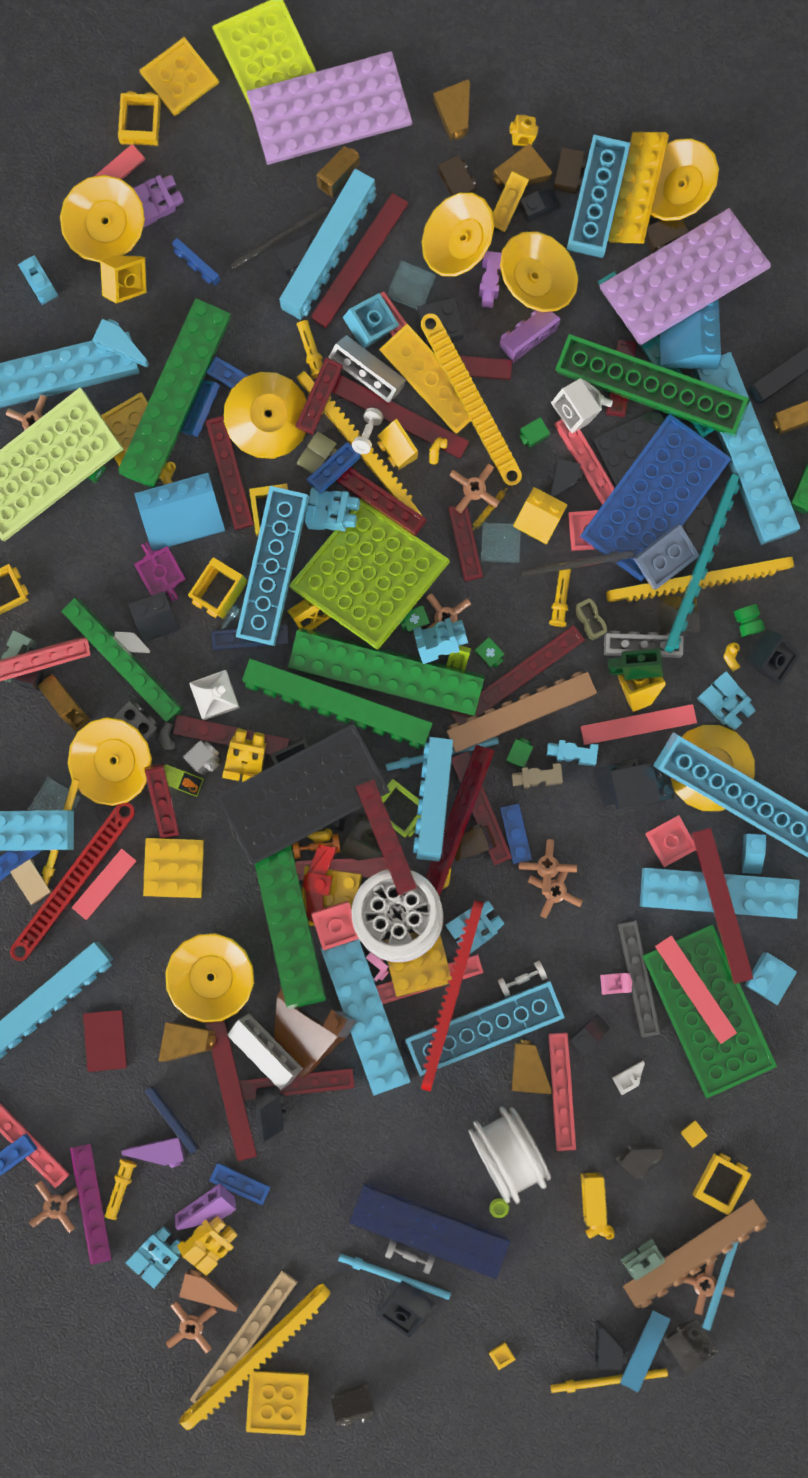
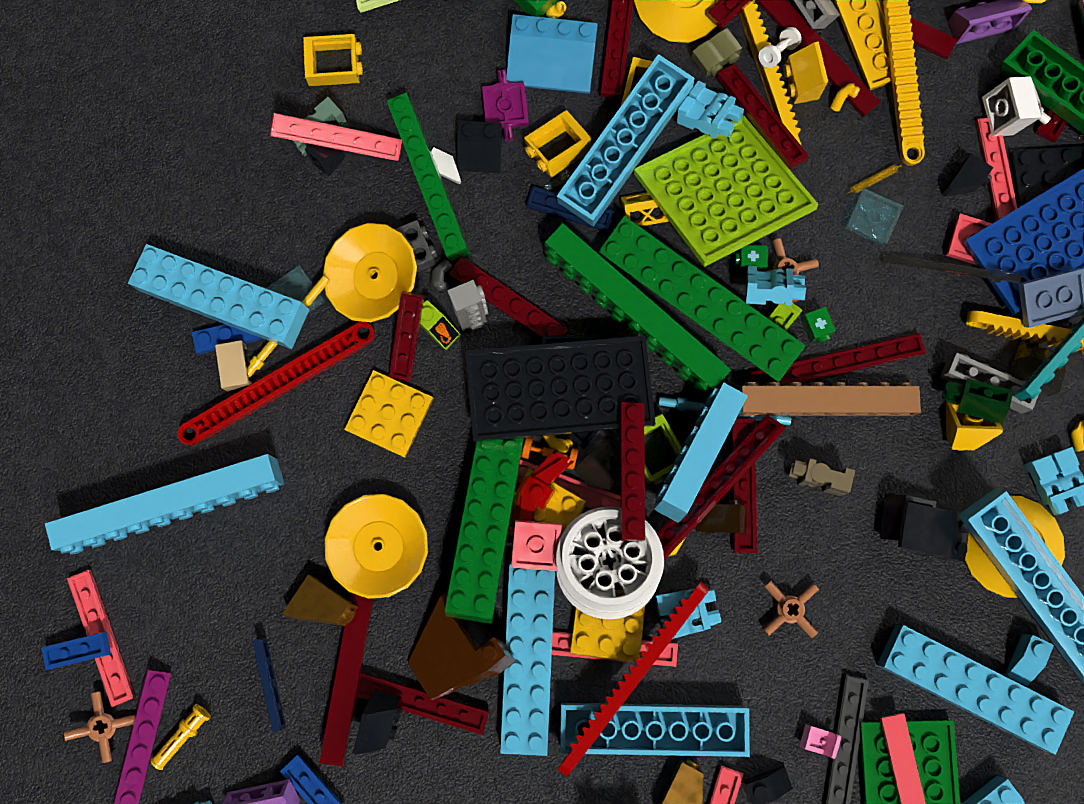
camera: 25 degrees right, 5 degrees down
(63, 702) = (348, 195): pearl gold slope -> none
(104, 884) = (308, 400): coral tile -> none
(104, 1040) = (236, 567): dark red tile -> none
(162, 1152) = (242, 716): medium lavender slope -> none
(214, 695) = (508, 251): white piece -> none
(245, 756) = (501, 329): yellow hips -> none
(264, 1051) = (391, 628): brick -> none
(333, 468) = (729, 70): blue plate -> none
(378, 962) = (565, 606): bright pink bracket -> none
(465, 544) = (836, 202): dark red tile -> none
(472, 482) = (868, 150): nougat bar -> none
(515, 833) = (771, 529): blue plate -> none
(519, 753) = (809, 443): green brick -> none
(521, 979) = (717, 691): white wheel -> none
(534, 433) = (953, 119): green brick -> none
(540, 515) = (929, 203): yellow slope -> none
(543, 871) = (791, 586): nougat bar -> none
(560, 609) = (913, 305): yellow pin -> none
(570, 752) = (869, 465): medium azure hips -> none
(593, 623) = (941, 328): olive brick -> none
(638, 724) = (950, 466): coral tile -> none
(671, 841) = (940, 608): coral plate -> none
(722, 906) = (977, 706): dark red tile -> none

